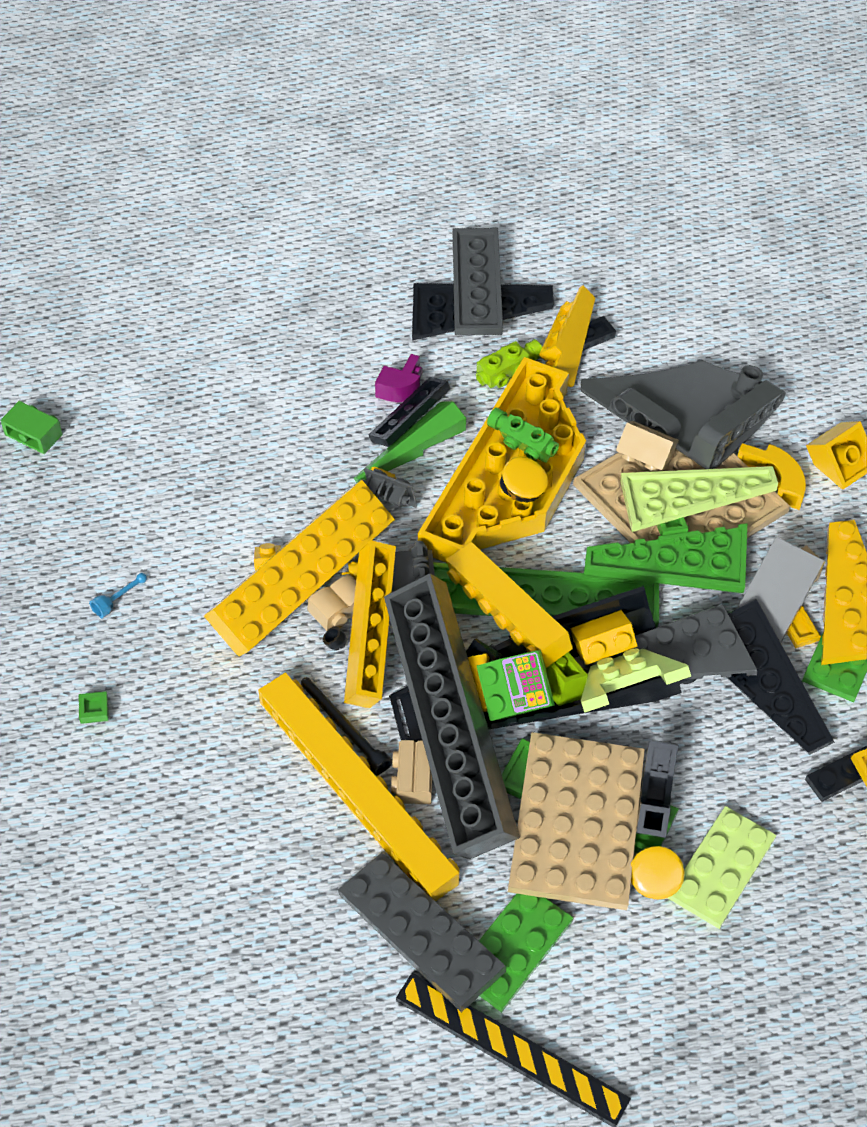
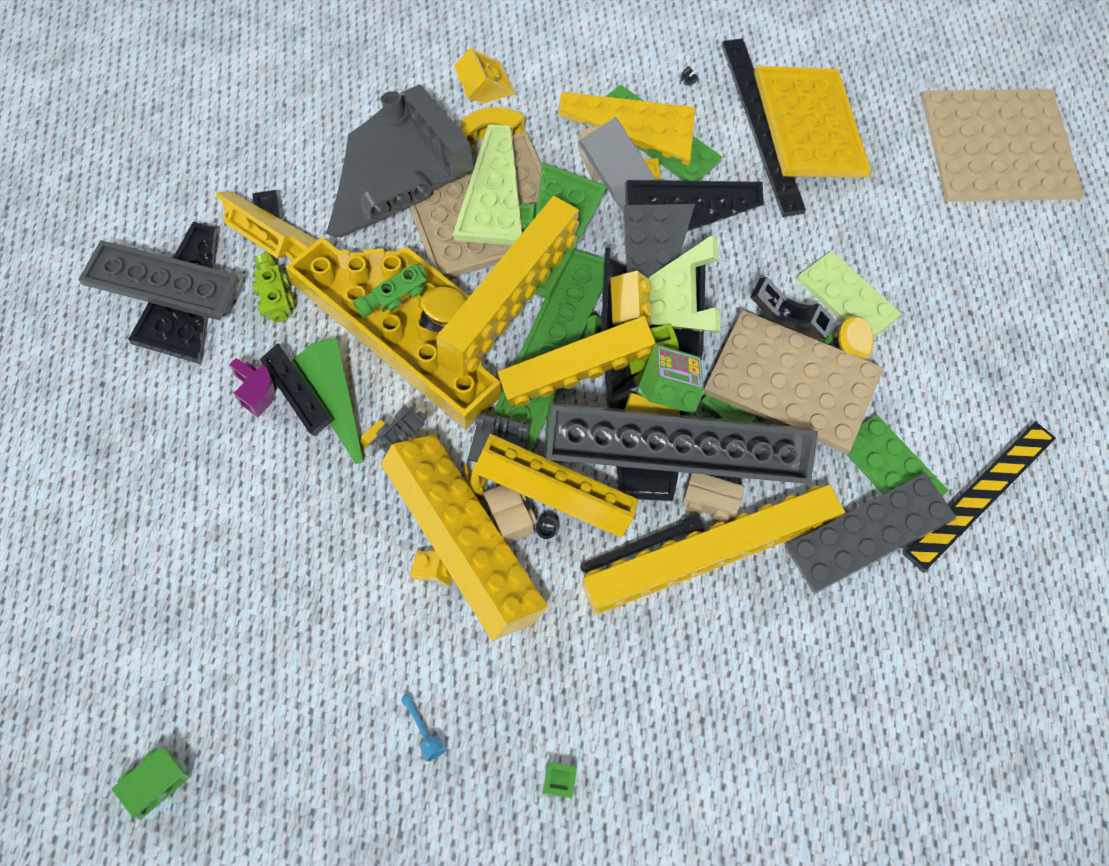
camera: 75 degrees left, 10 degrees up
(565, 519) = (507, 288): none -> yellow brick
(647, 446) = (433, 204): brick -> none

